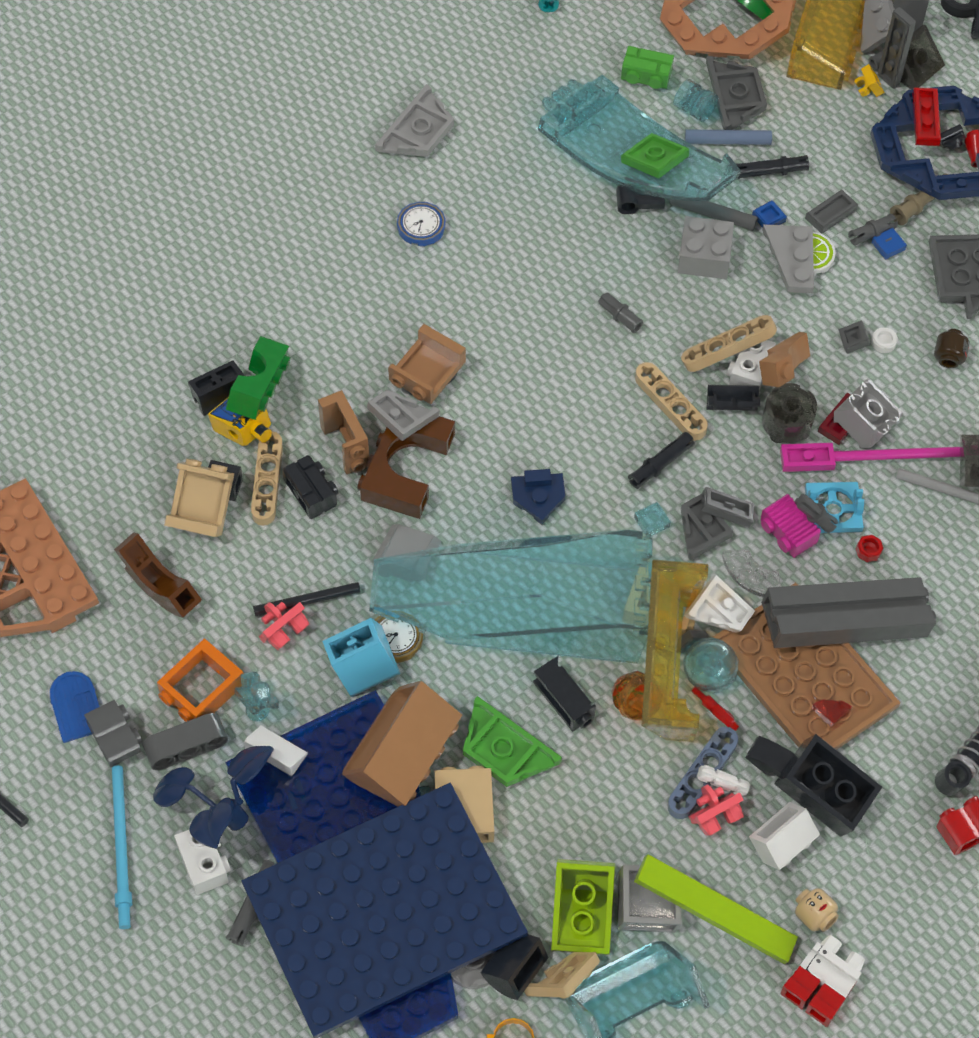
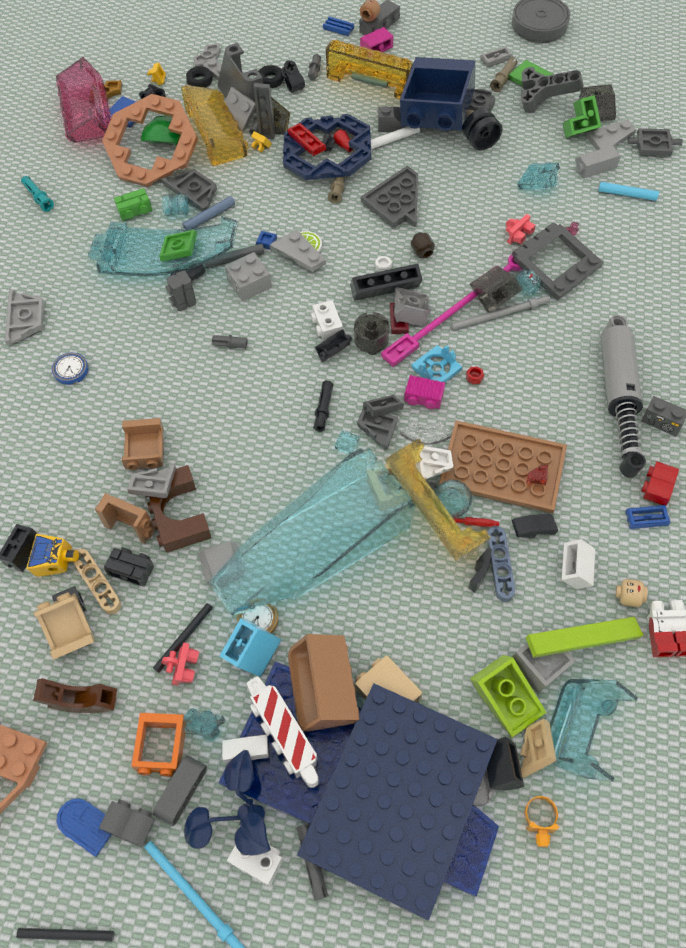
camera: 35 degrees left, 0 degrees up
(252, 393) = (48, 534): green arch -> none
(326, 761) = (285, 731): none -> white hinge
(505, 746) = (379, 636): bright green wing -> none
(538, 492) = (269, 472): dark blue plate -> none
(564, 695) = (387, 578): black window -> none
(610, 214) = (181, 291): none -> dark grey brick
(628, 695) = (428, 547): clear orange helmet -> none
(674, 399) = (300, 368): tan beam -> none
(680, 759) = (481, 567): none -> black slope
(706, 816) = (526, 576): coral hips -> none
(722, 779) = (517, 558): white axle -> none
(763, 329) = (304, 315): tan beam -> none
(774, 166) = (251, 210): black pin -> none
(783, 359) = (345, 307): medium nougat slope -> none
(816, 513) = (436, 374): dark grey axle -> none
(828, 785) = (577, 517): black brick -> none
(831, 211) = (297, 217): dark grey tile -> none
(848, 612) = (498, 416): dark grey brick -> none
(854, 337) = (367, 268): dark grey tile -> none
(861, 363) = (385, 282): none -> black brick
(872, 228) = (327, 212): dark grey pin -> none
(889, 243) = (341, 215): blue tile -> none
(915, 858) = (642, 523): none -> blue tile

